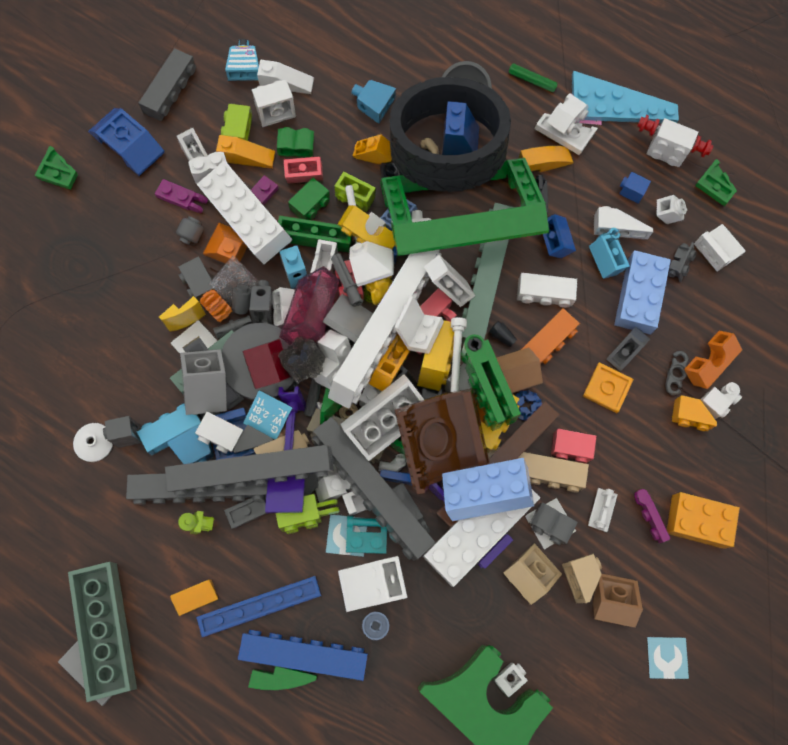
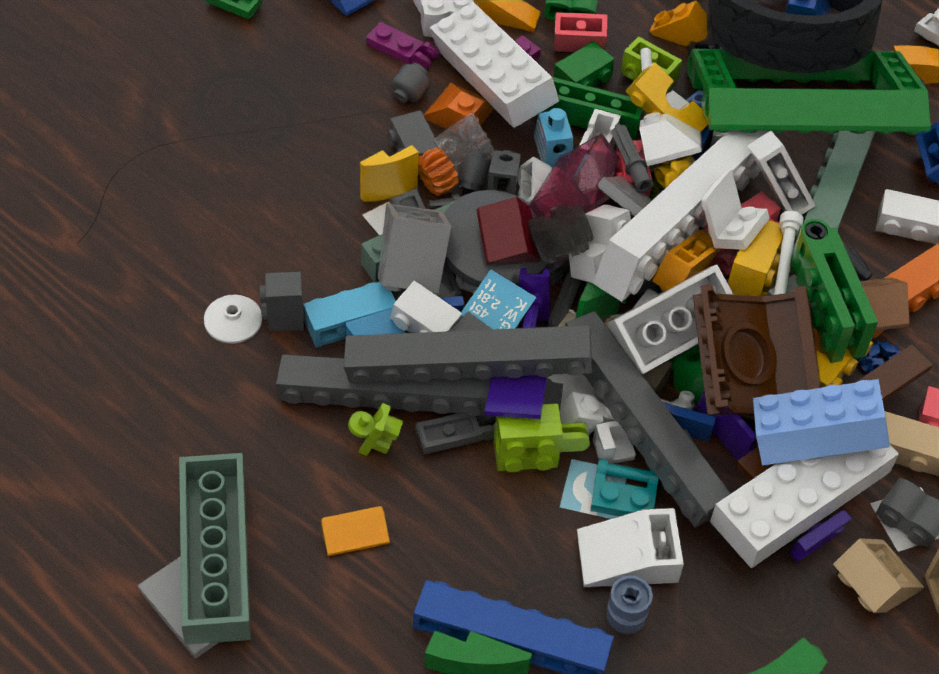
camera: 10 degrees right, 20 degrees down
(258, 606) = (450, 560): blue tile -> none

